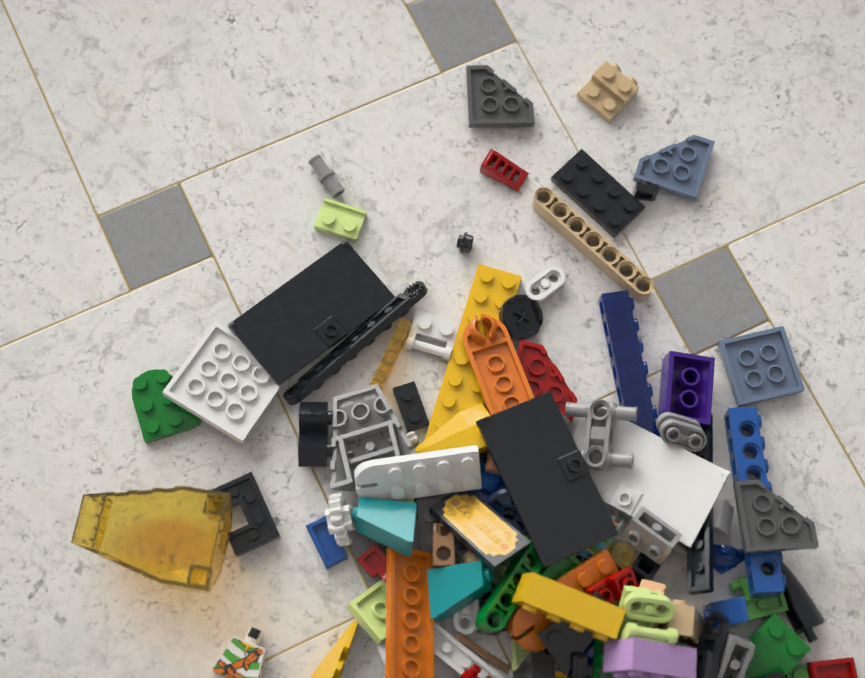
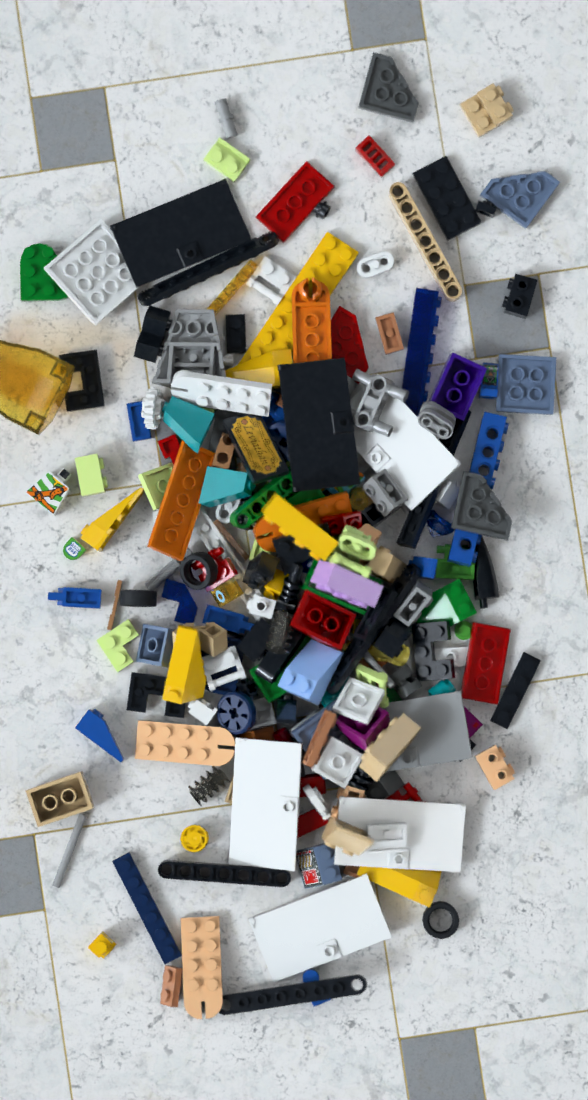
camera: 25 degrees right, 15 degrees up
(286, 624) = (90, 475): none -> yellowish green brick
(431, 243) = (295, 201): none -> red tile
(521, 316) = (346, 287): black tile -> none
(587, 354) = (389, 333): none -> nougat plate
(717, 272) = (520, 296): none -> black brick
(723, 382) = (489, 384): none -> leg

